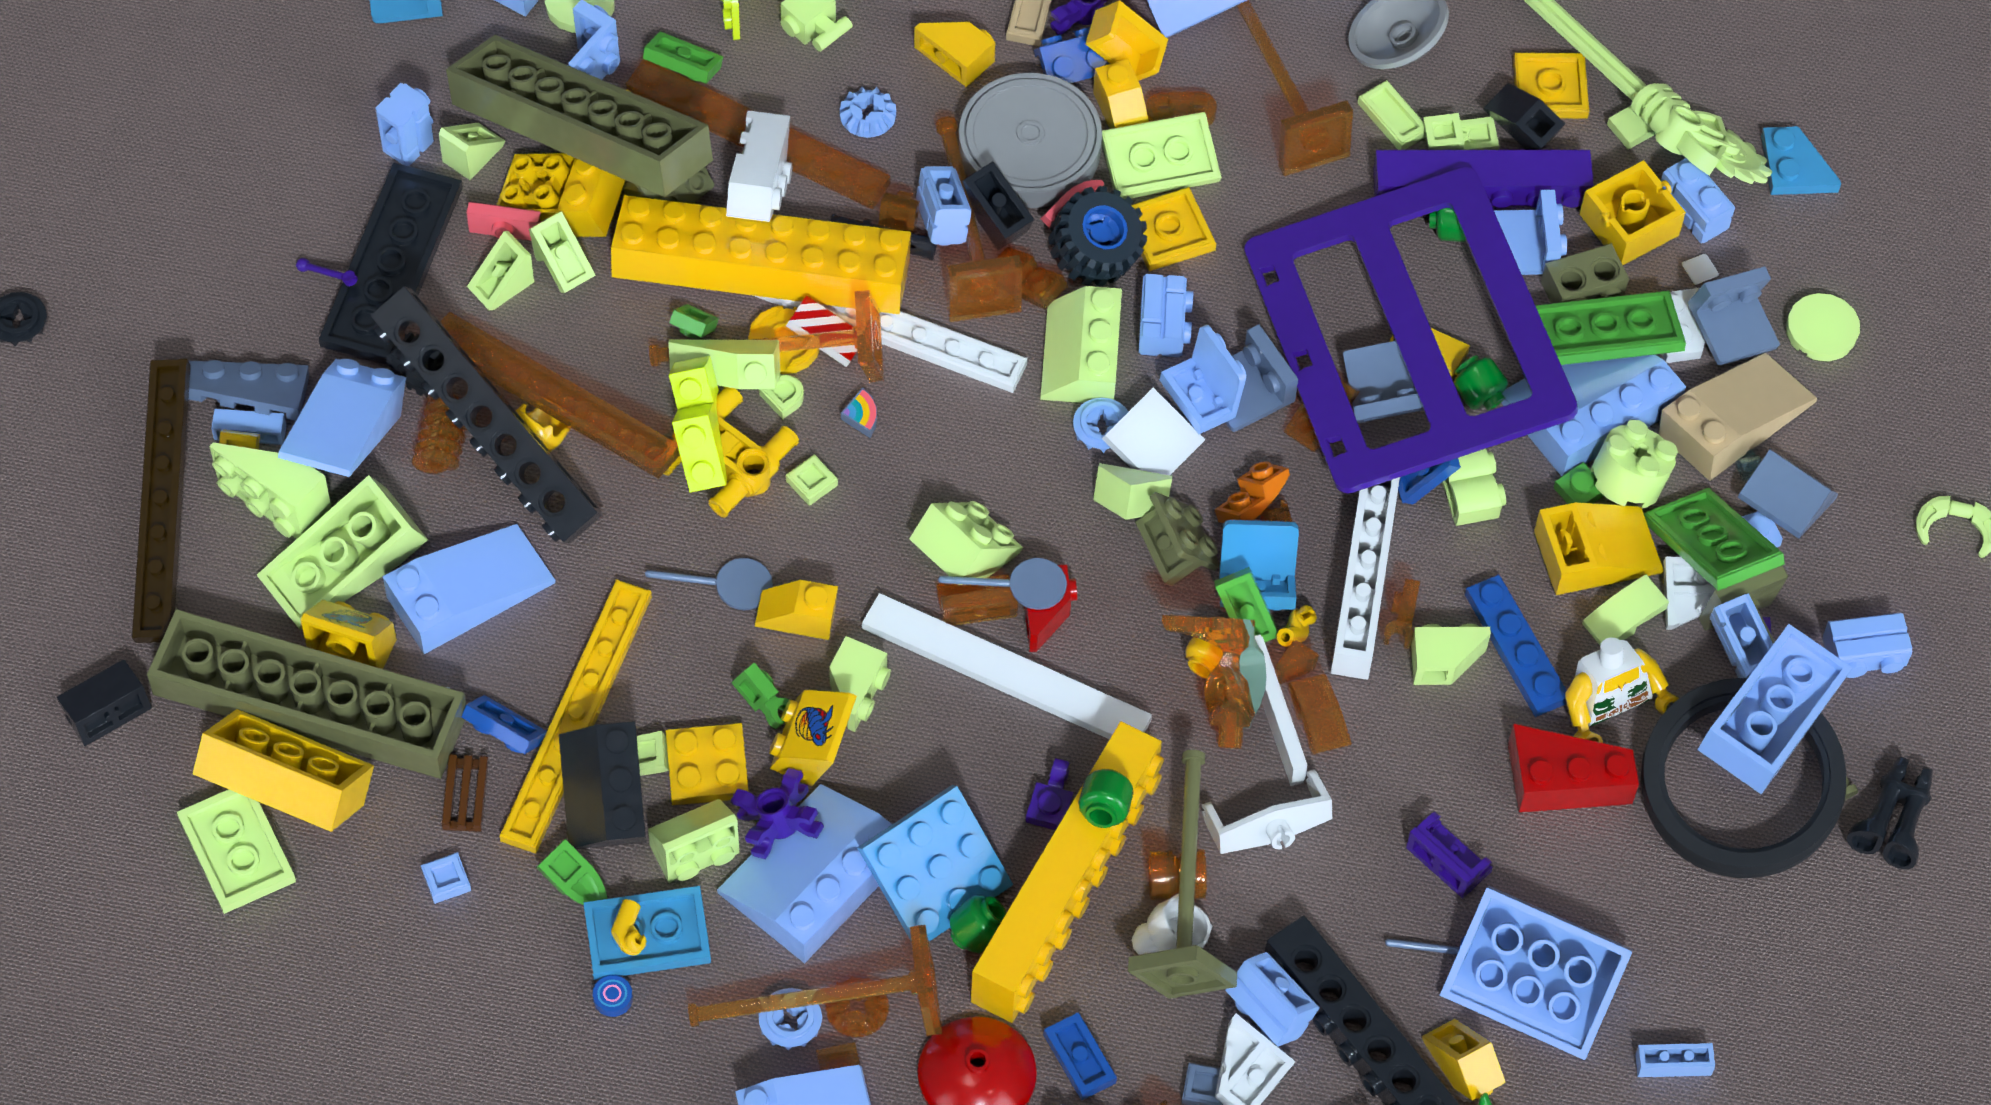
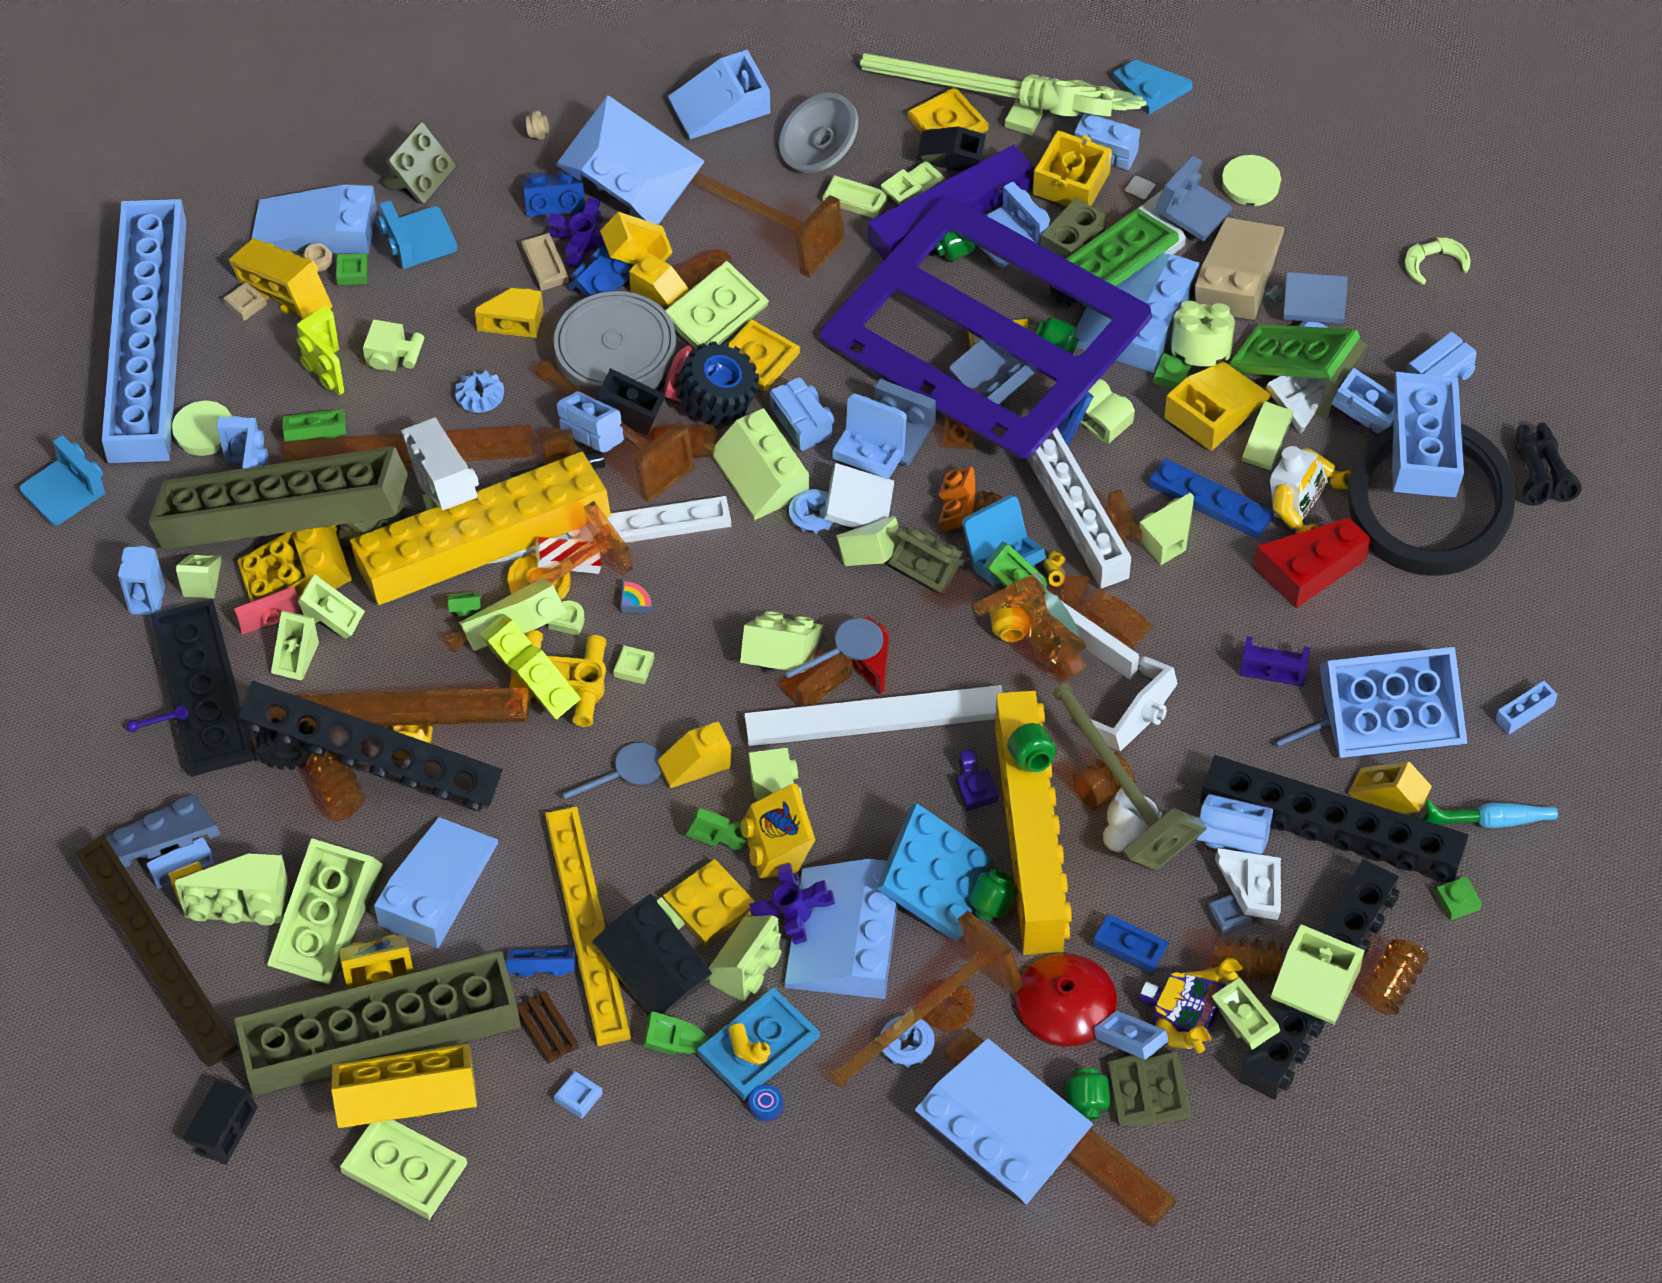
camera: 30 degrees left, 5 degrees down
(345, 417) = (259, 808): light blue slope -> none

